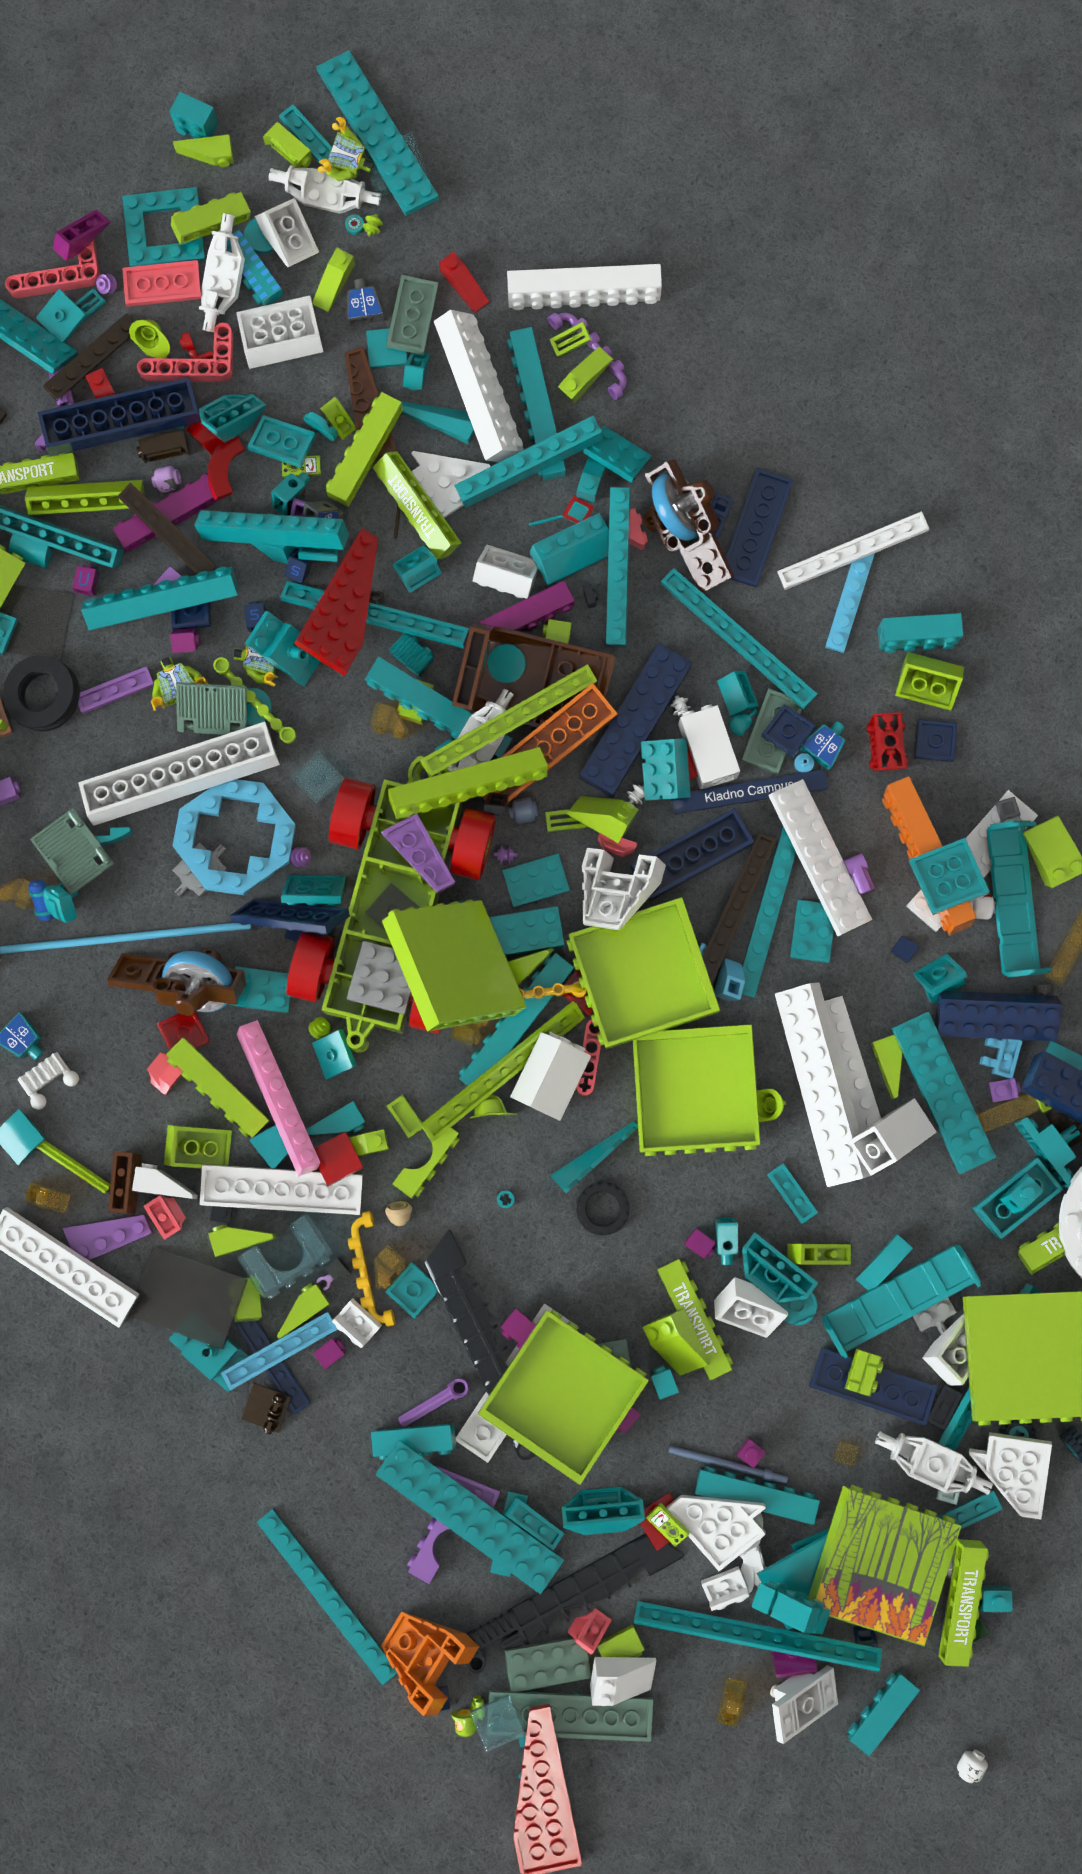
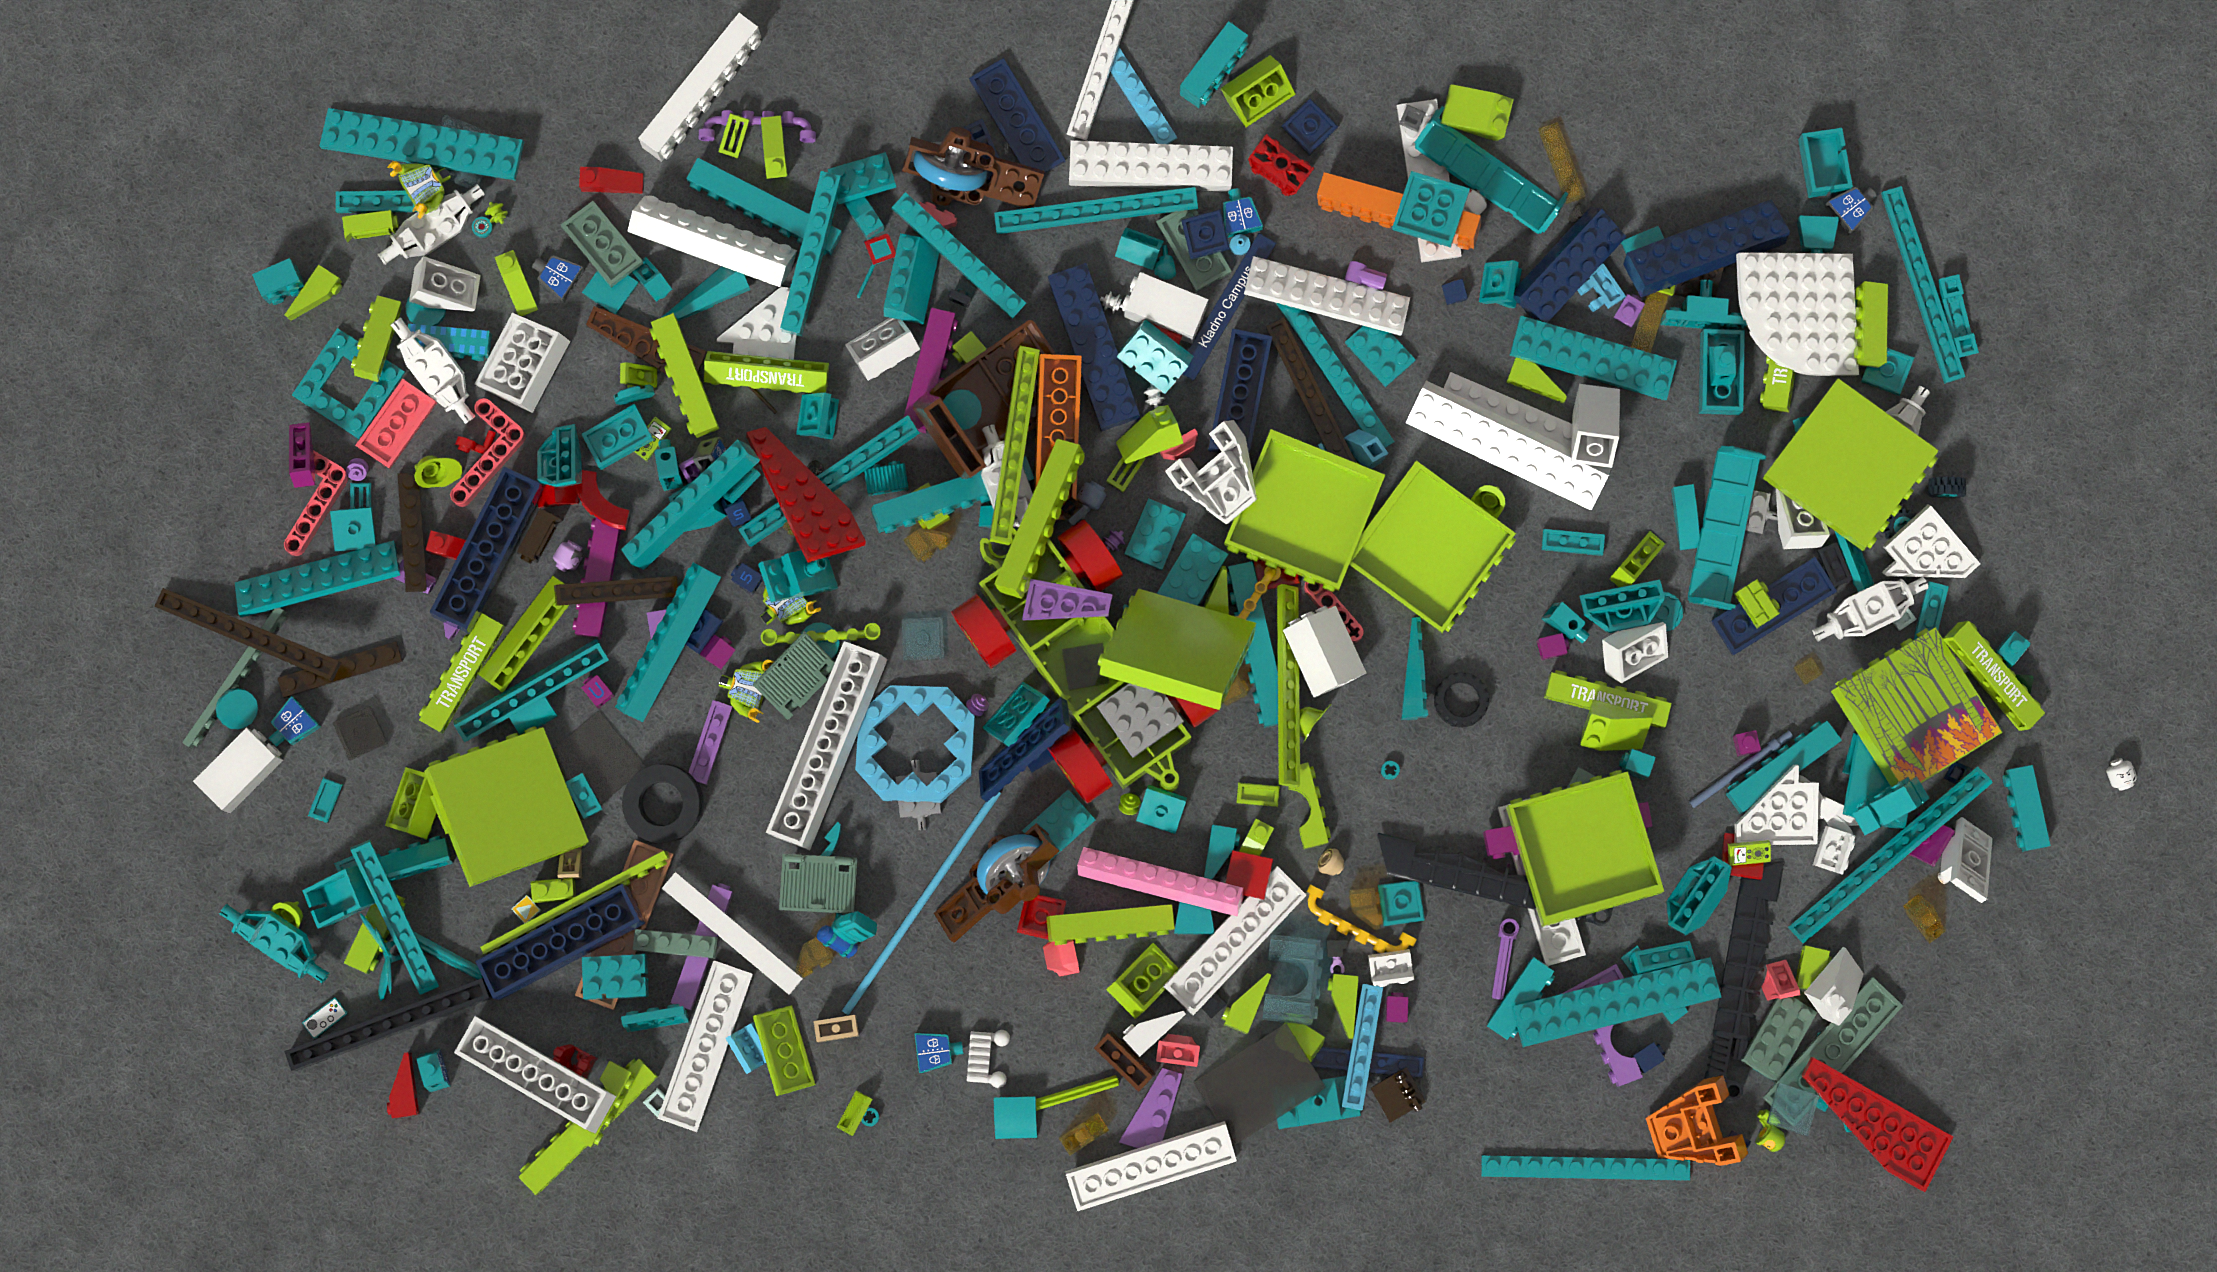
camera: 55 degrees left, 0 degrees up
(450, 1575) = (1649, 1057): none -> dark blue brick
(805, 649) = (1150, 165): none -> white brick

